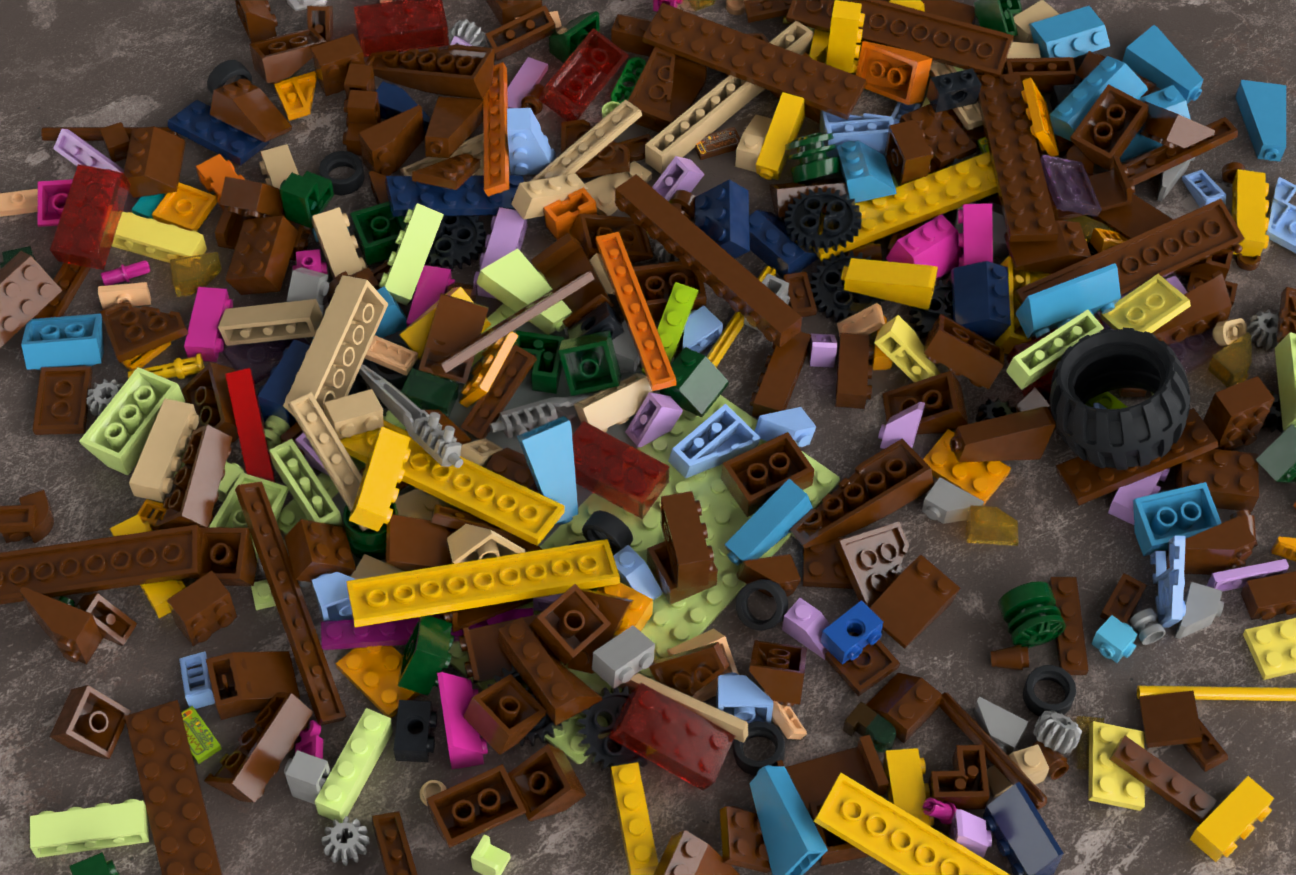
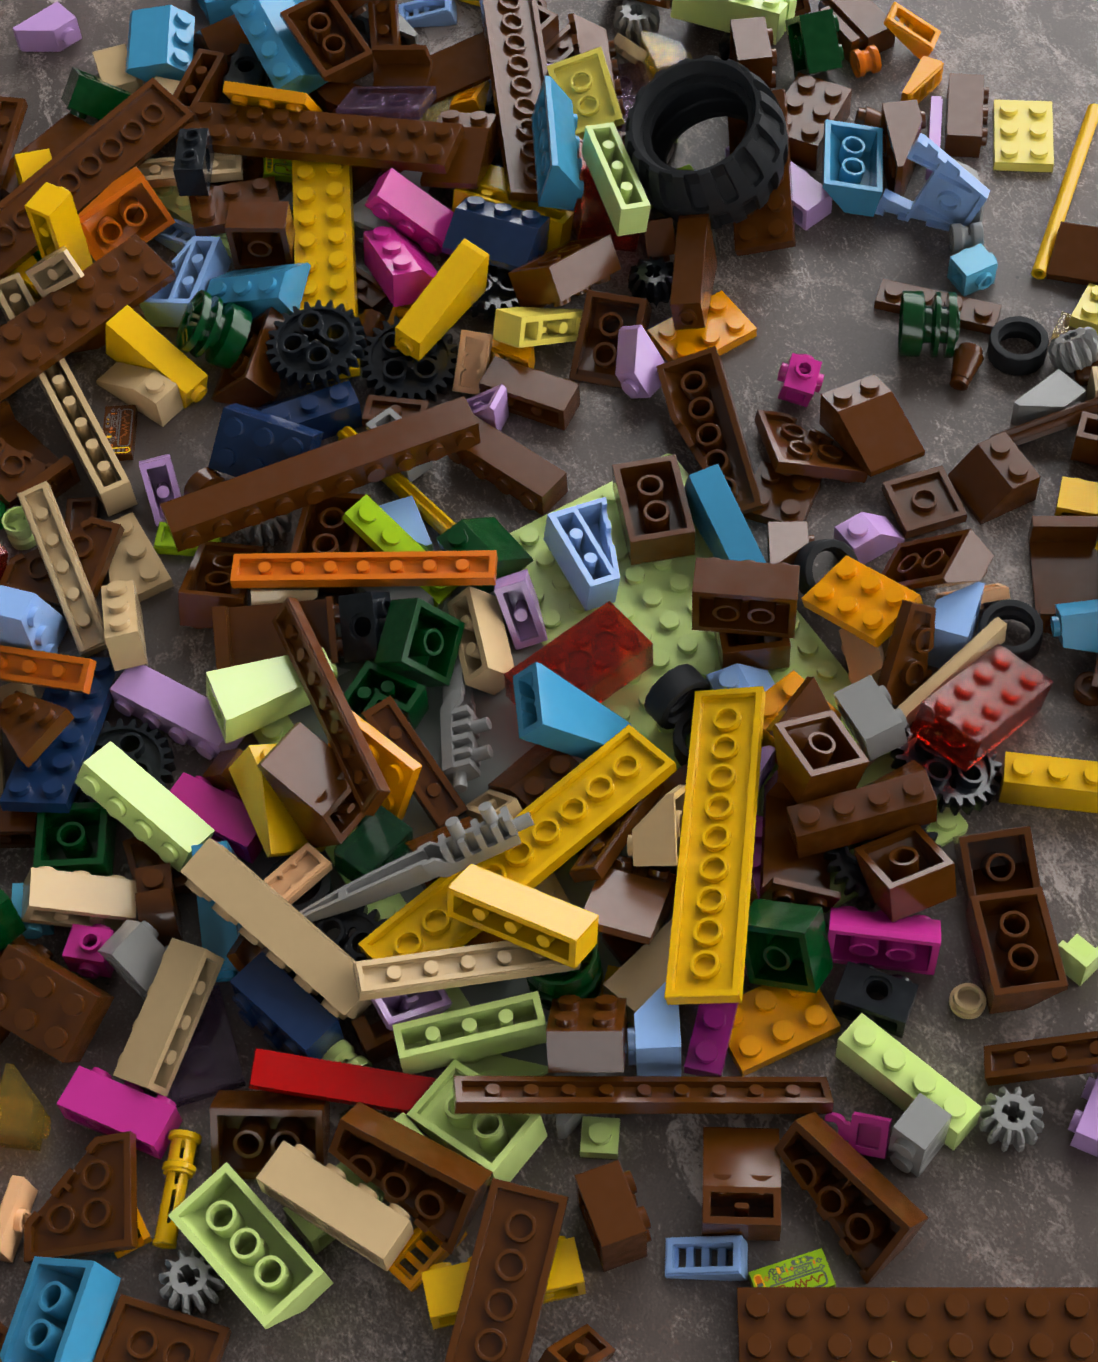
camera: 65 degrees left, 0 degrees up
(228, 554) = (542, 1157): reddish brown slope -> none
(354, 413) = (392, 924): tan brick -> none
(562, 215) = (158, 613): orange brick -> none
(733, 624) = (859, 600): none -> light orange plate
(791, 420) = (590, 473): light blue slope -> none
(810, 46) = (54, 271): none -> tan slope
(858, 620) = (897, 491): blue brick -> none
(868, 722) = (1012, 518): leg -> none
(941, 541) = (800, 379): none -> dark pink brick
(948, 502) = (747, 357): light grey slope -> none
(991, 526) = (791, 333): clear yellow slope -> none
(1124, 599) = (925, 247): reddish brown plate -> none

